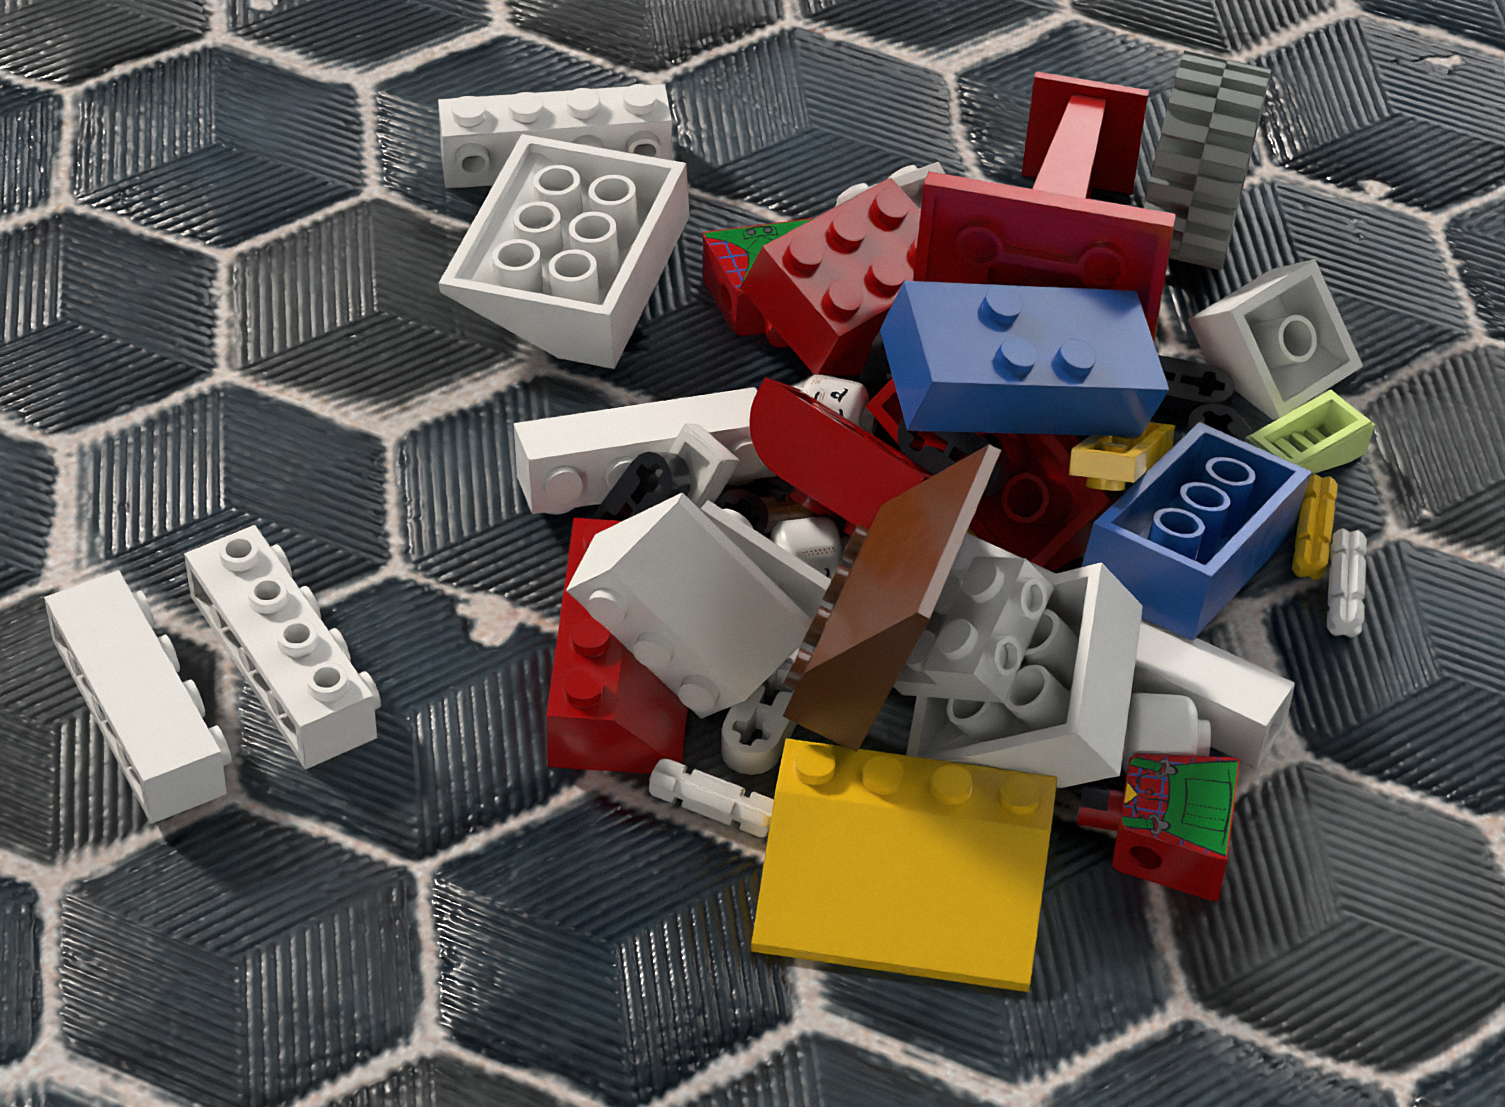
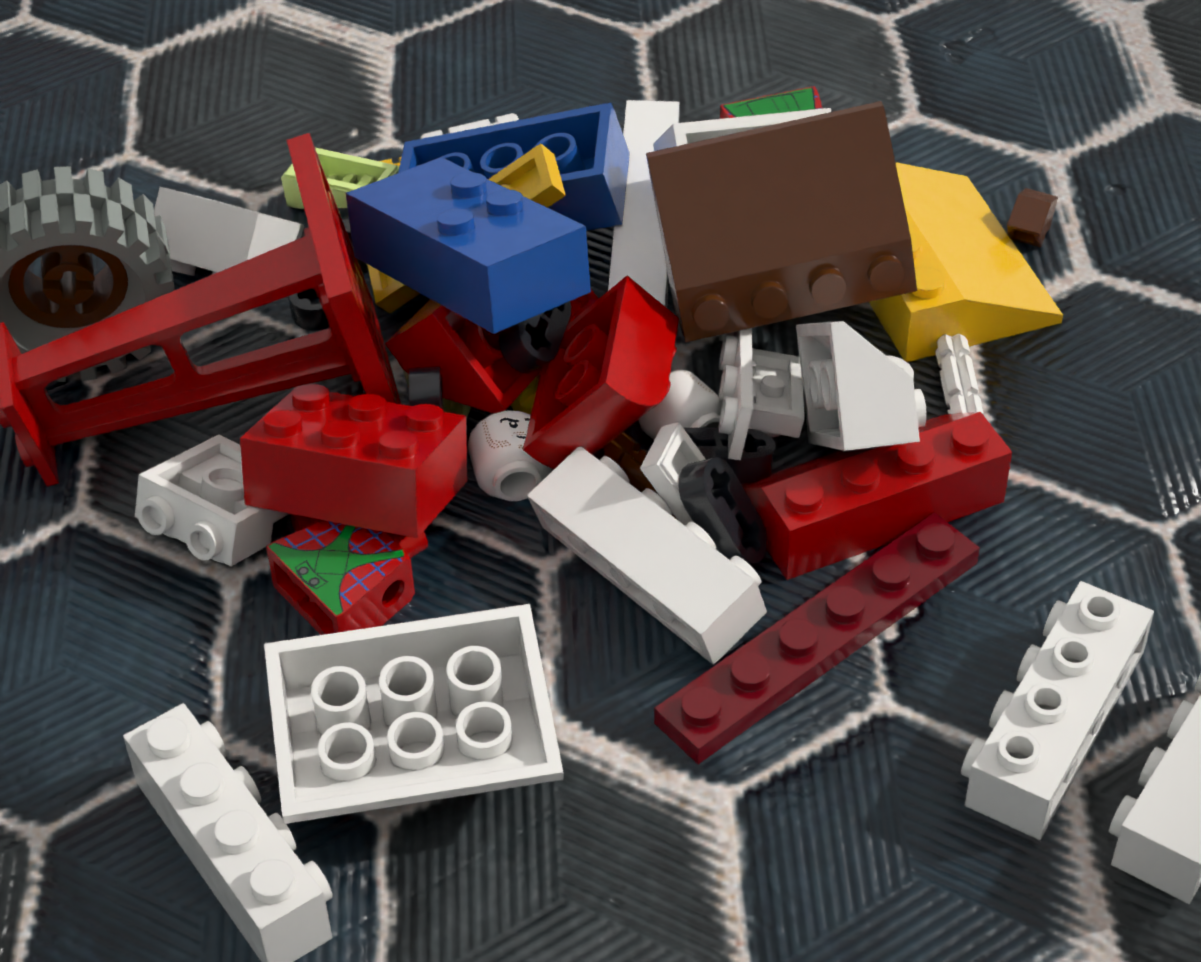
camera: 115 degrees left, 0 degrees up
(492, 557) = (814, 638): none -> dark red plate
(909, 984) = (1031, 217): none -> reddish brown piece

